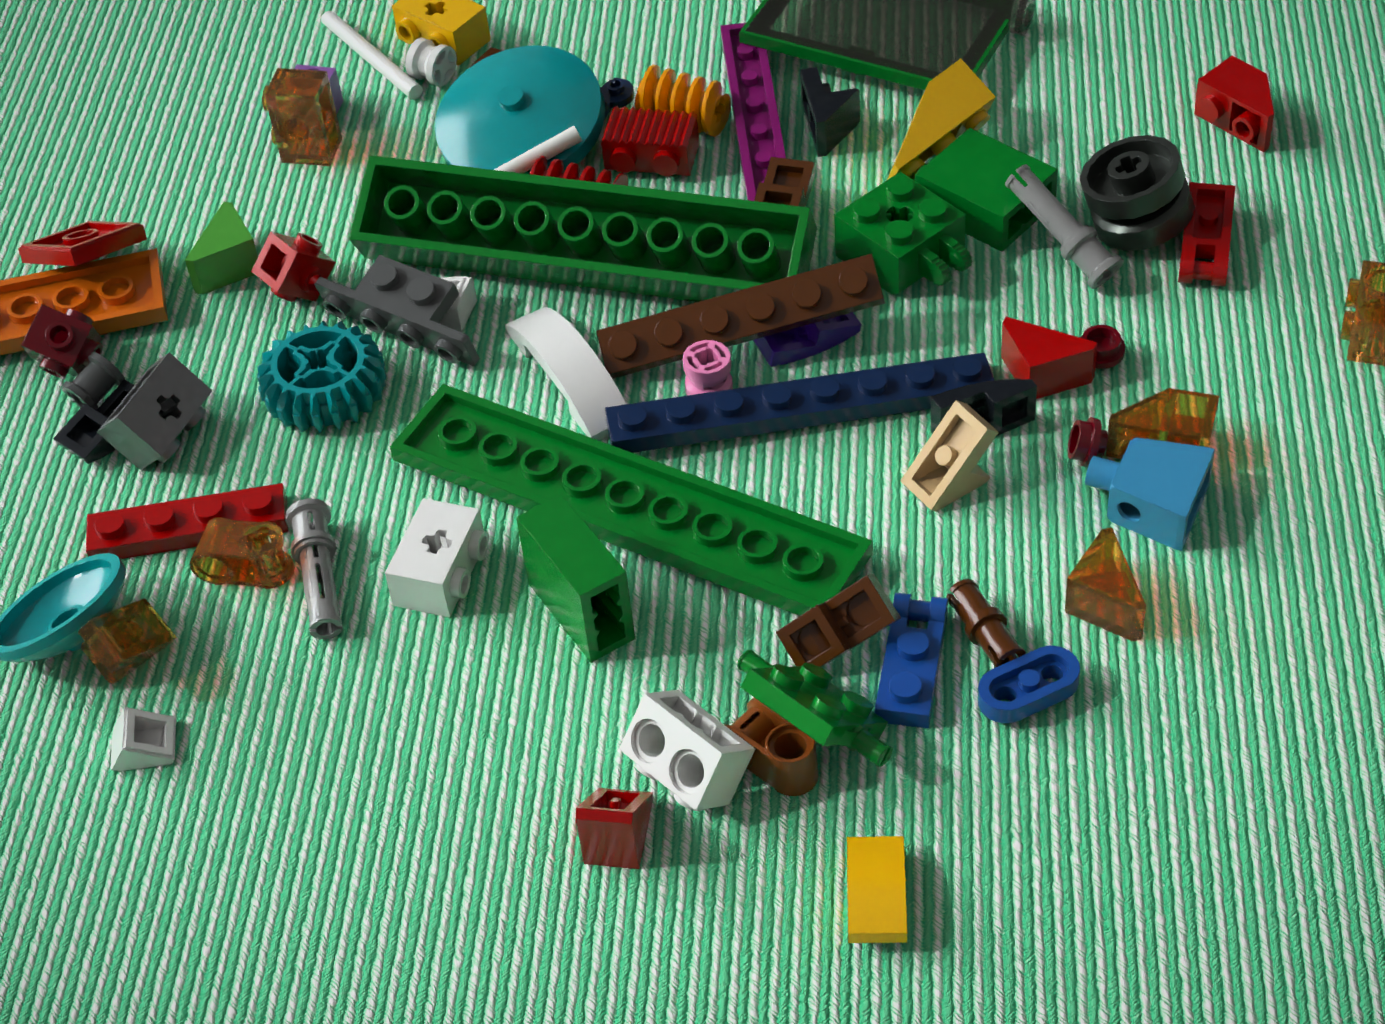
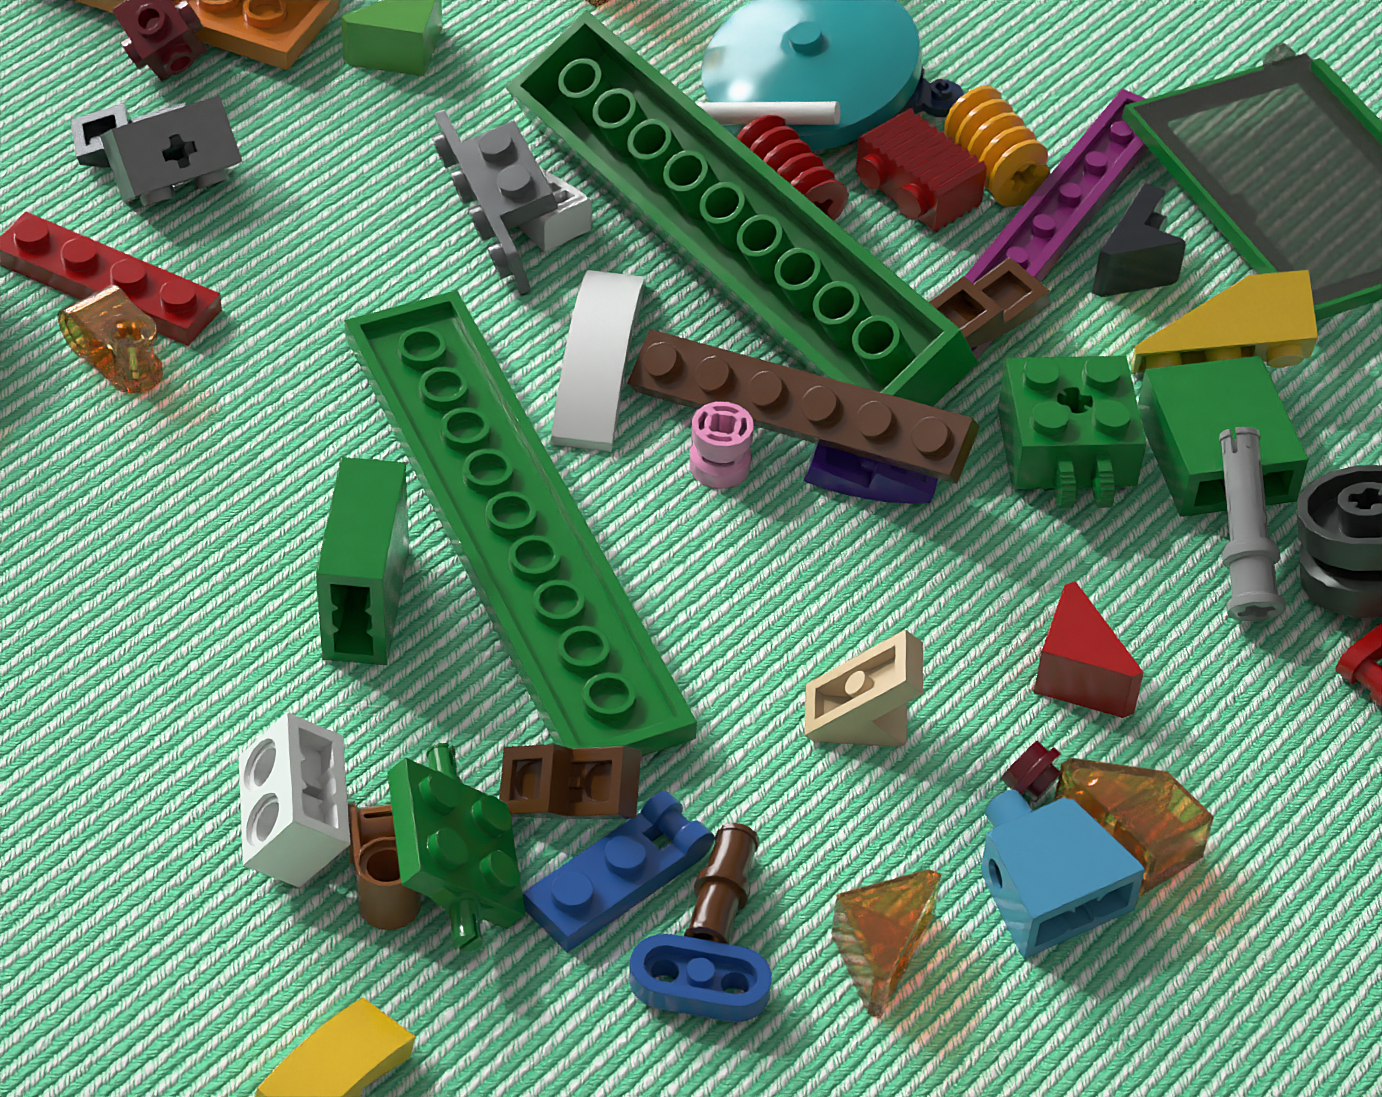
camera: 30 degrees right, 0 degrees up
(93, 382) = (152, 88): dark grey bush -> none
(292, 266) = (436, 79): red brick -> none
(321, 376) = (358, 211): teal gear -> none
(323, 611) = (179, 377): light grey pin -> none
(436, 557) = (274, 456): white brick -> none
(614, 827) = (165, 824): red slope -> none
(790, 404) = (791, 539): dark blue plate -> none
(1000, 402) = (984, 671): black slope -> none
(1109, 346) = (1167, 685): dark red plate -> none

